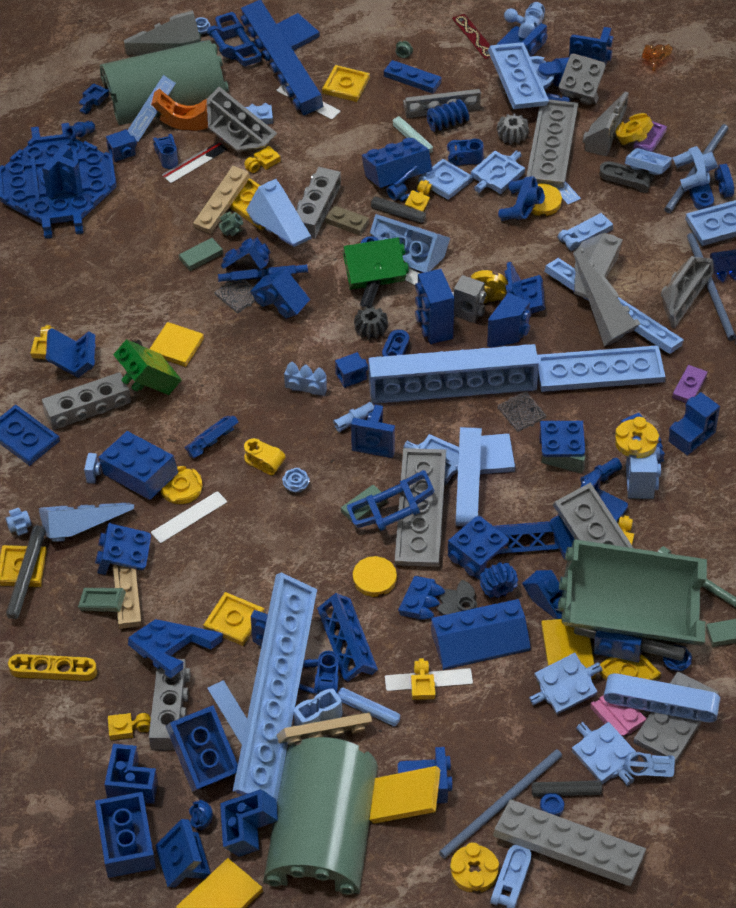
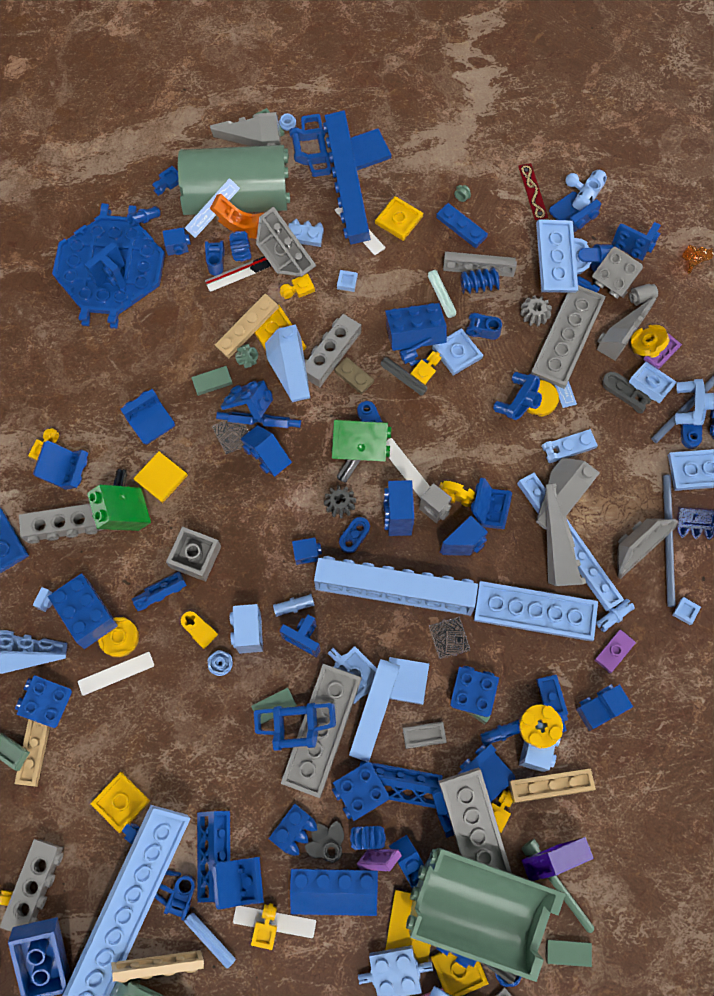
camera: 15 degrees right, 20 degrees up
(144, 295) = (147, 417): none -> blue bracket
(163, 638) = (44, 816): blue wing -> none
(191, 134) = (240, 246): none -> blue gear
(229, 708) = (88, 899): light blue sticker -> none
(237, 393) = (193, 554): none -> light grey brick
(305, 380) = (267, 558): light blue plate -> none
(311, 143) = (347, 280): none -> light blue plate
(315, 440) = (247, 628): none -> light blue brick
(323, 707) = (156, 942): light blue brick -> none
(374, 576) = (259, 791): yellow tile -> none
(383, 647) = (237, 883): none -> blue bracket
(422, 247) = (407, 422): light blue wedge -> none
(497, 171) = (507, 356): light blue plate -> none
(519, 589) = (379, 859): none -> medium lavender plate
(525, 494) = (424, 735): none -> light grey tile
(613, 92) = (643, 293): none -> light grey brick
(666, 500) = (551, 785): none -> tan plate
(679, 355) = (615, 615): none -> light blue pin
(694, 539) = (557, 859): none -> window

